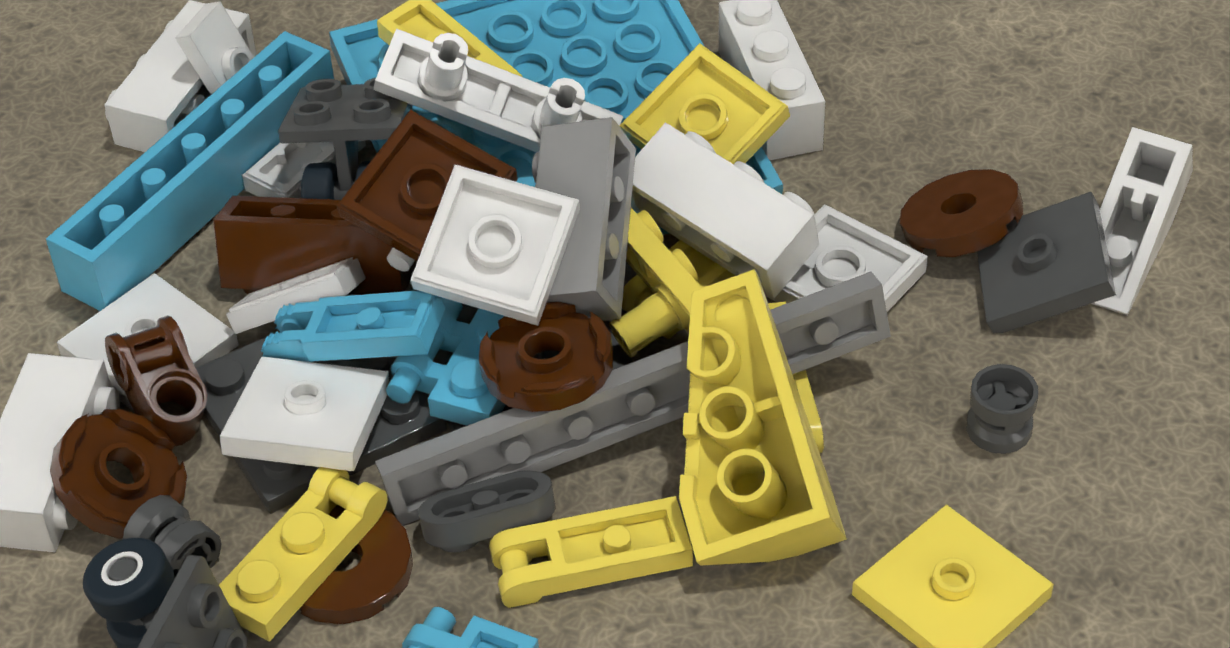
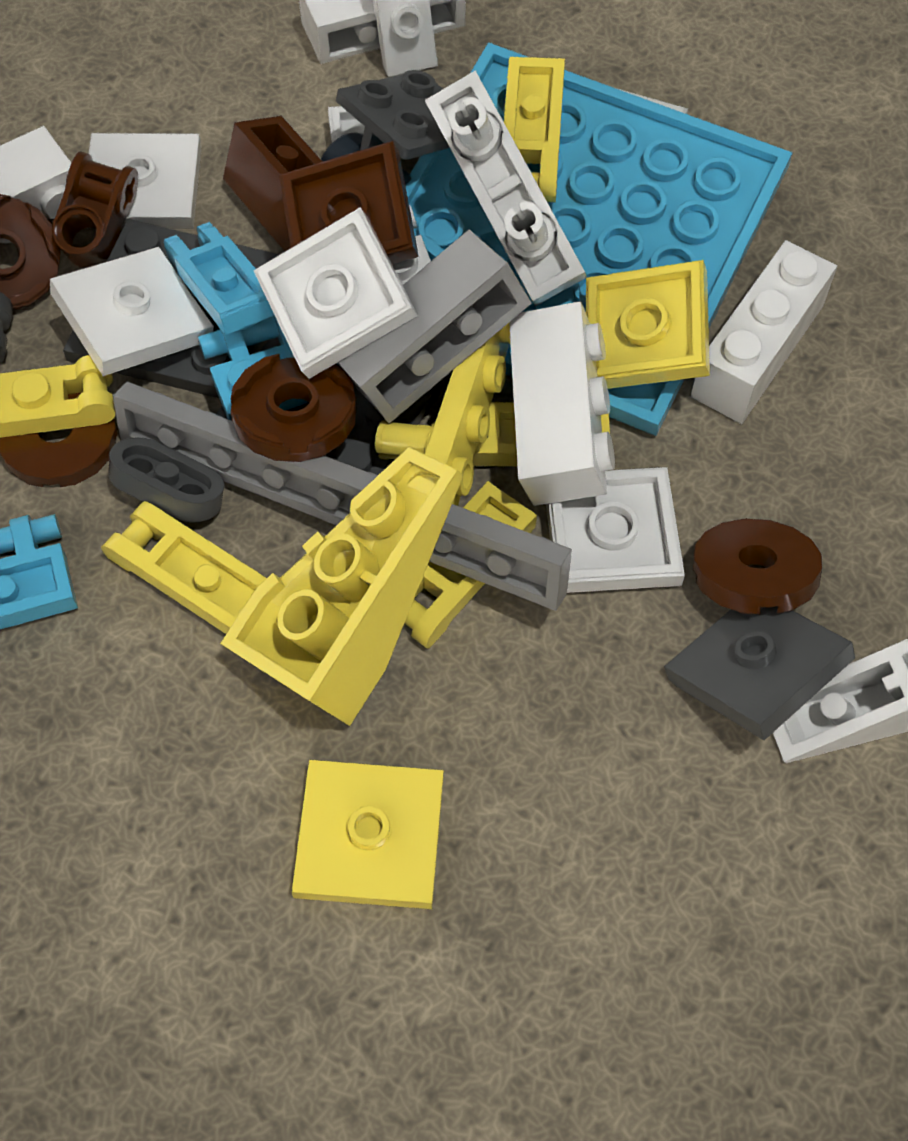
camera: 45 degrees right, 15 degrees up
(182, 177) = (284, 76): medium azure brick -> none
(263, 305) = (240, 221): white plate -> none
(1002, 408) = (580, 729): dark grey wheel -> none

